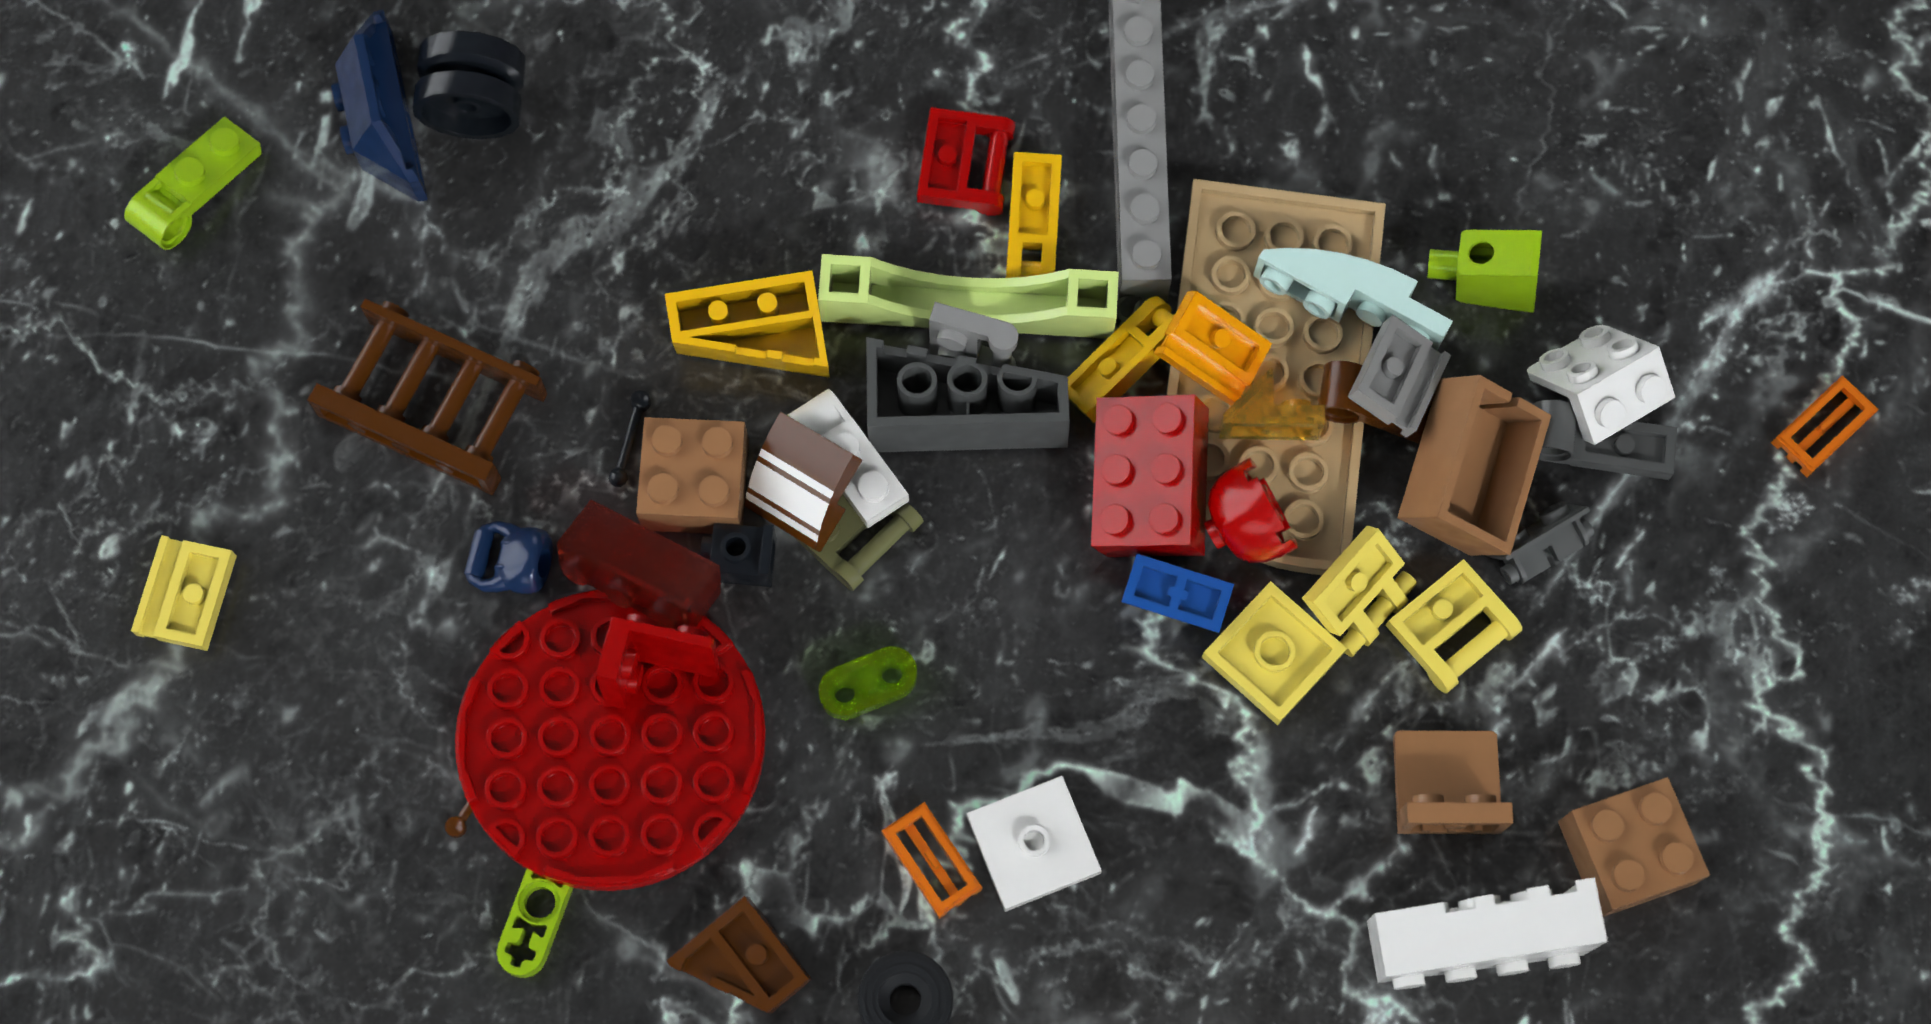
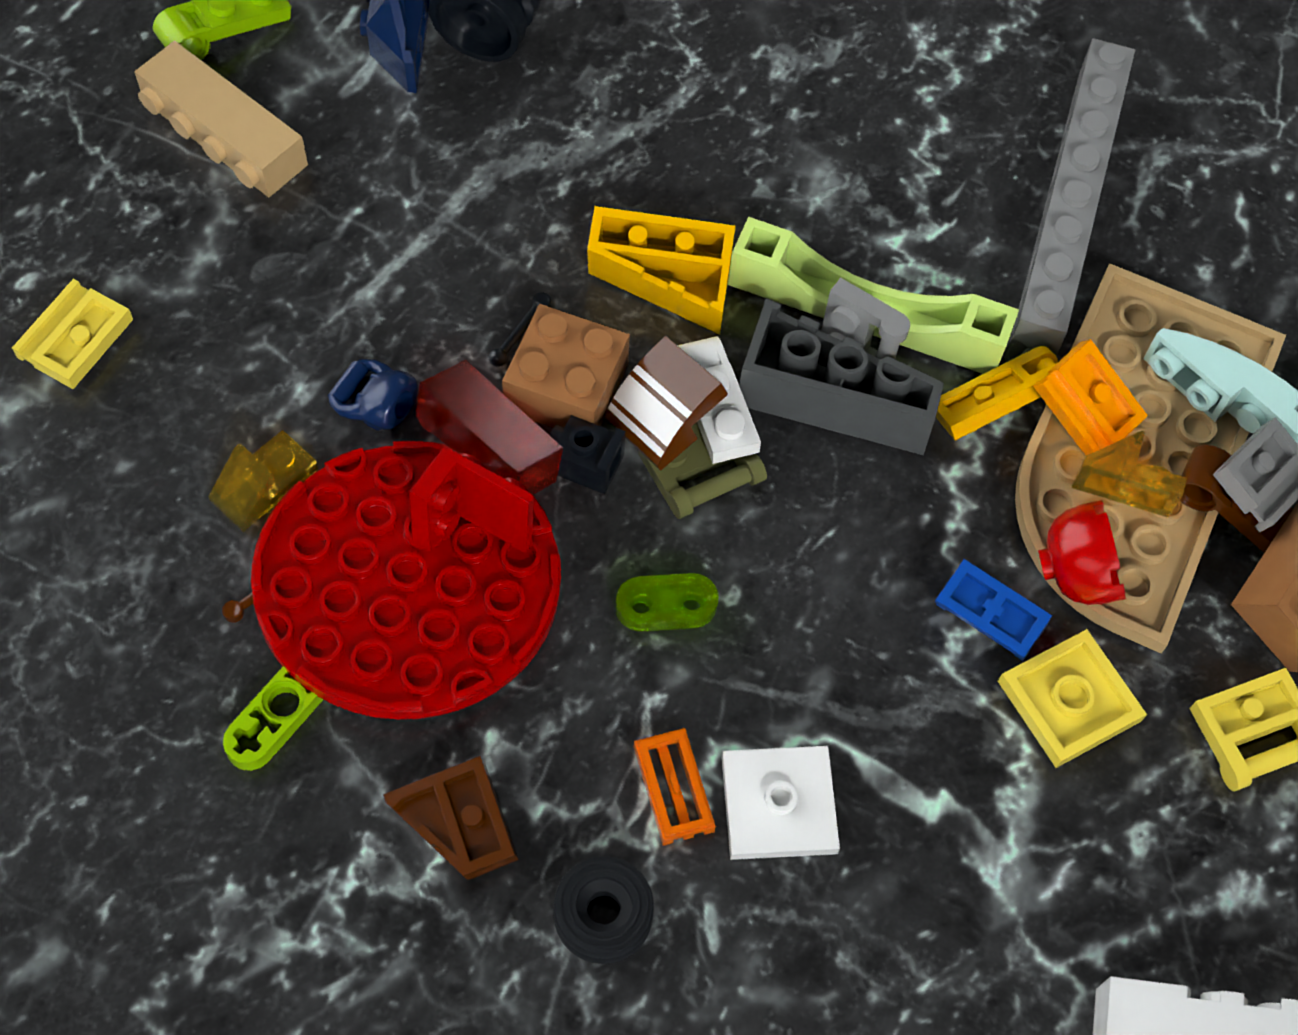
camera: 15 degrees right, 10 degrees down
(238, 303) = (221, 119): none -> tan brick
(430, 443) = (340, 277): reddish brown fence -> none
(433, 684) = (259, 480): none -> clear yellow slope
(949, 160) = (888, 186): red plate -> none
(1033, 213) = (953, 247): yellow plate -> none
(1150, 476) = (997, 495): brick -> none
(1350, 585) = (1170, 652): light yellow plate -> none
(1449, 783) = (1218, 879): medium nougat bracket -> none

